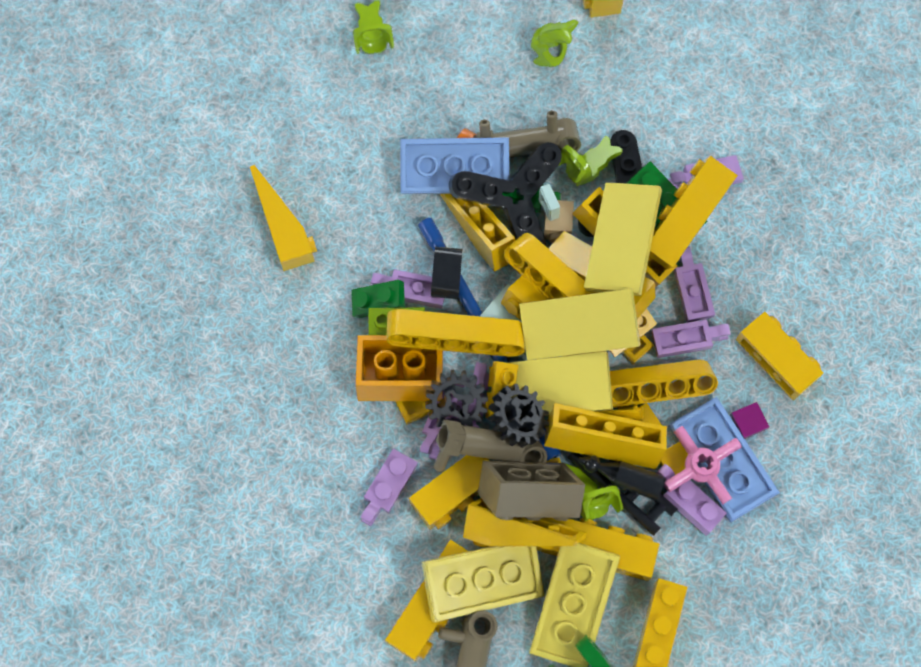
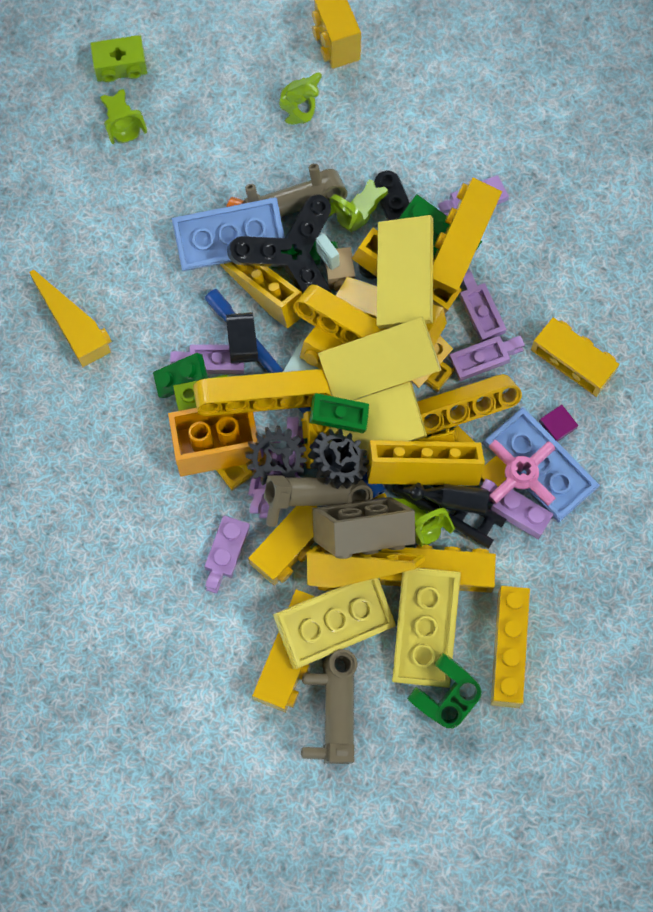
camera: 10 degrees left, 0 degrees up
(528, 369) = (339, 413): none -> green plate

